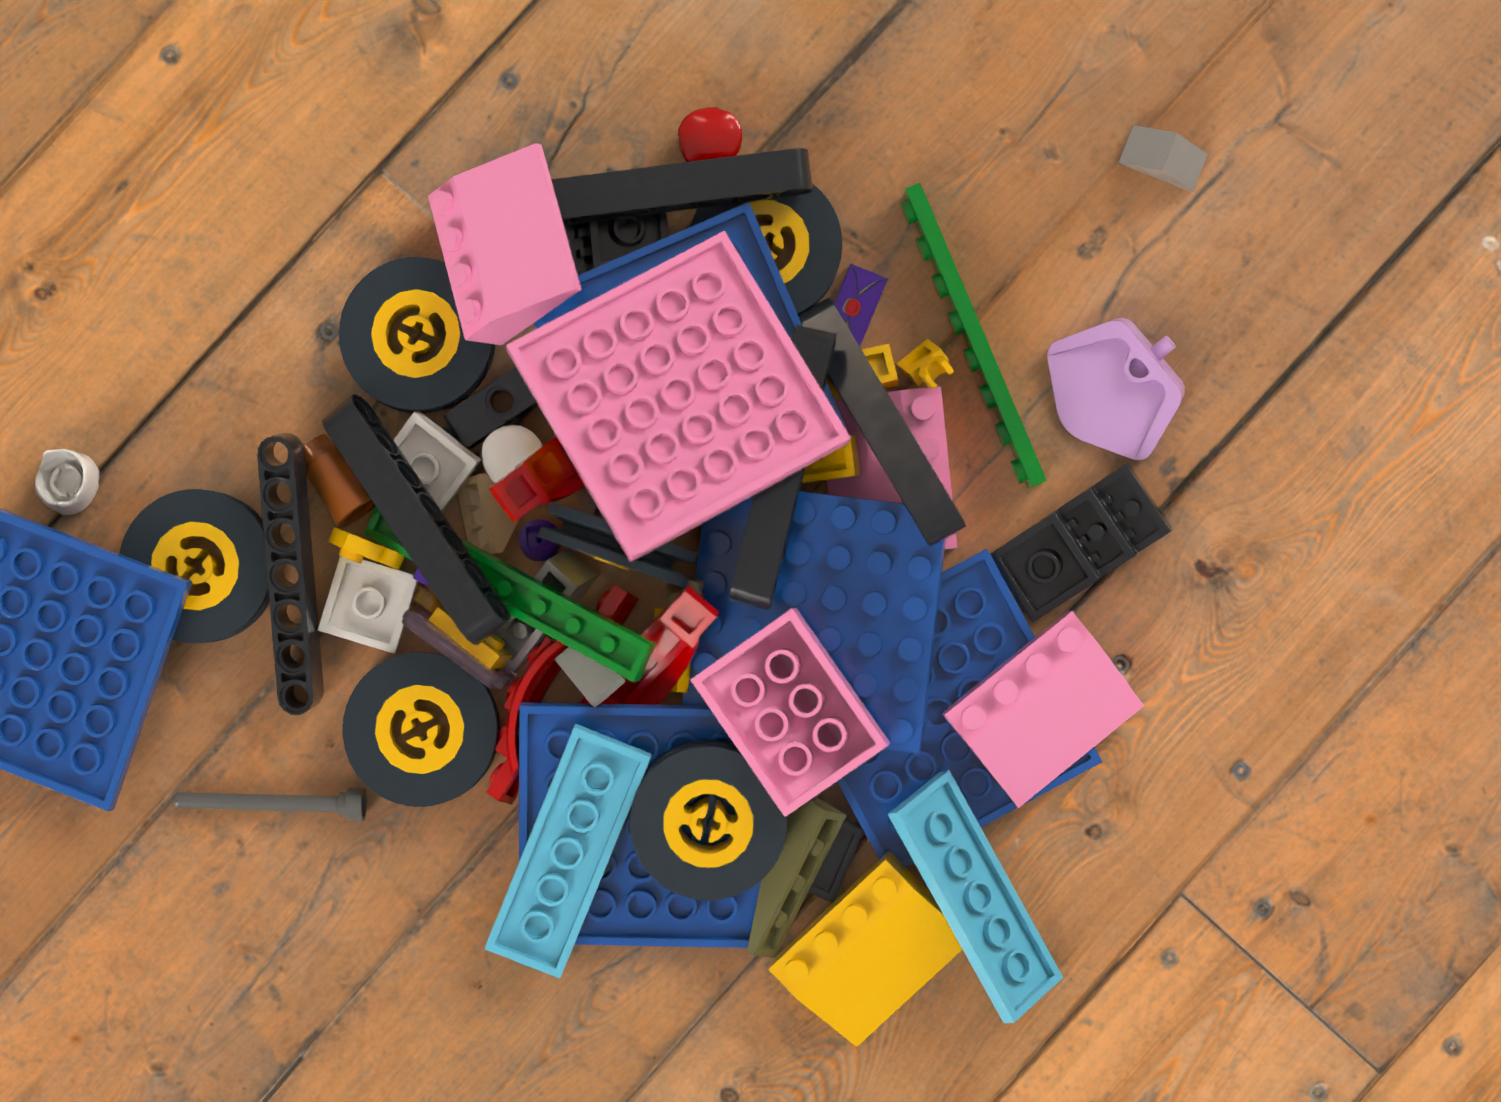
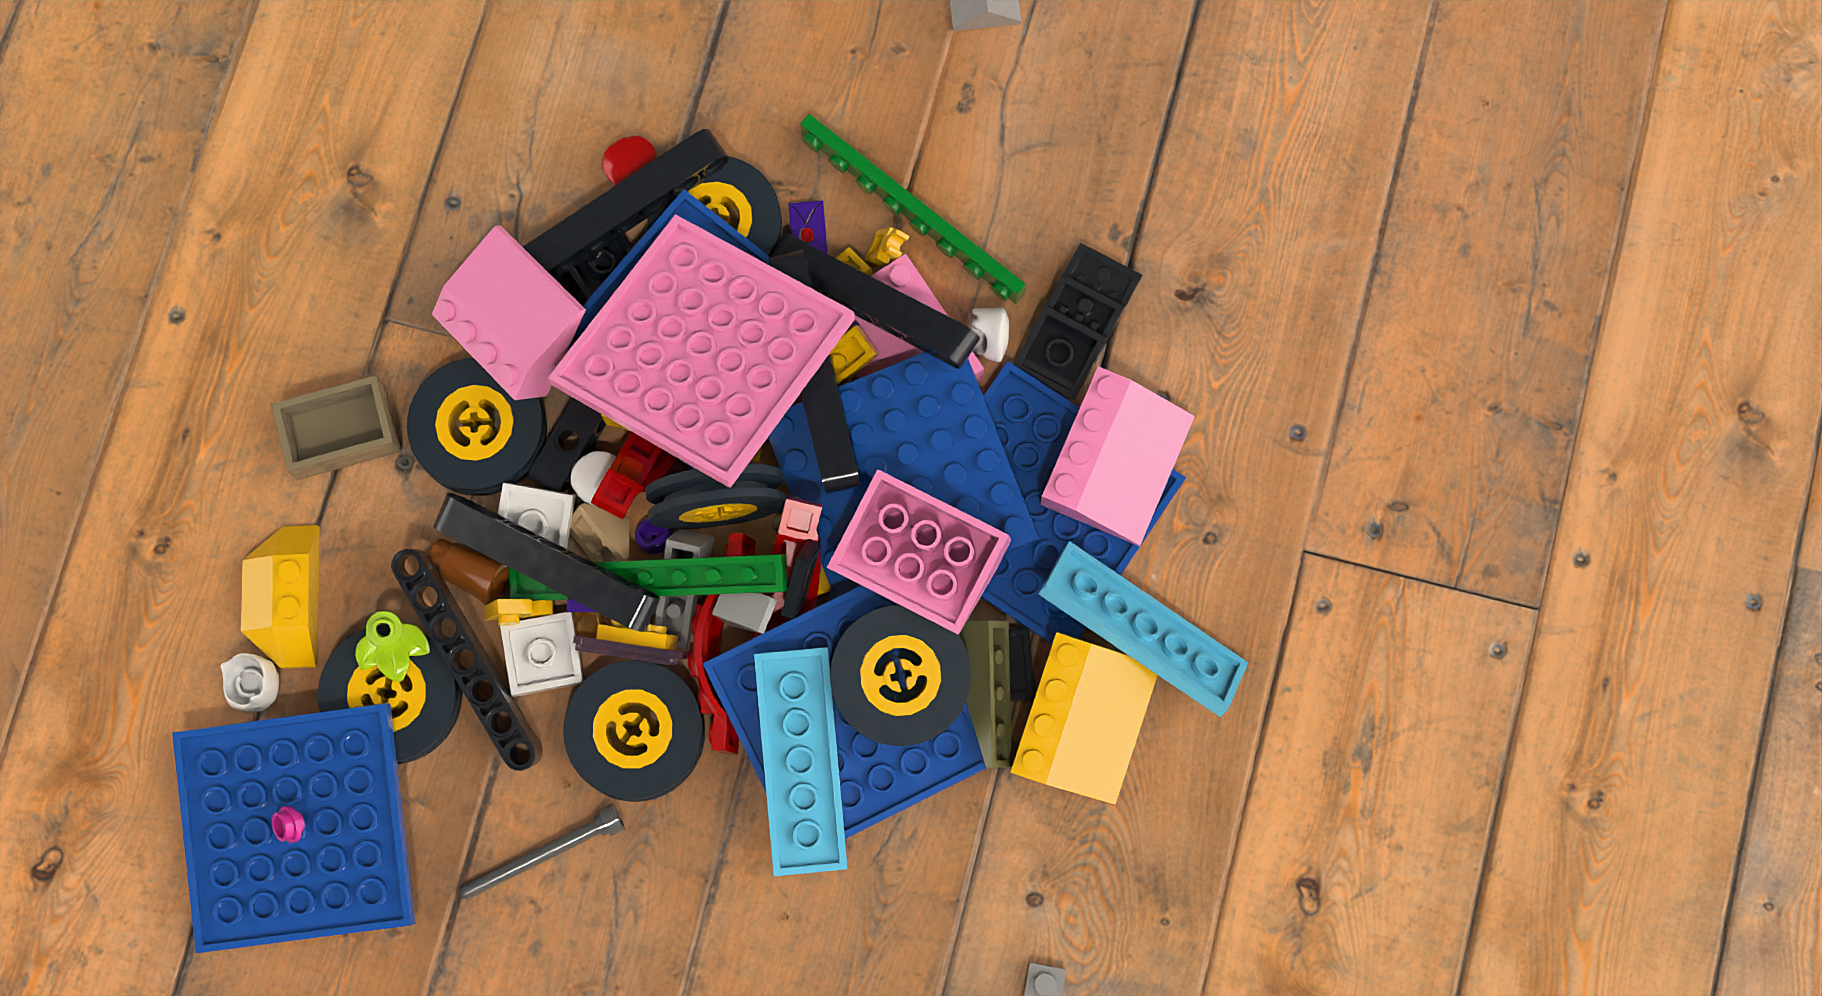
camera: 25 degrees left, 10 degrees down
(34, 653) = (288, 824): none -> dark pink plate
(141, 408) = (283, 596): none -> yellow wedge
(217, 528) = (390, 651): none -> lime plate
(274, 265) = (336, 427): none -> dark tan piece
(659, 674) = (801, 579): none -> black tile
(985, 510) = (993, 330): none -> white hair
(1115, 387) = (1040, 194): lavender animal -> none

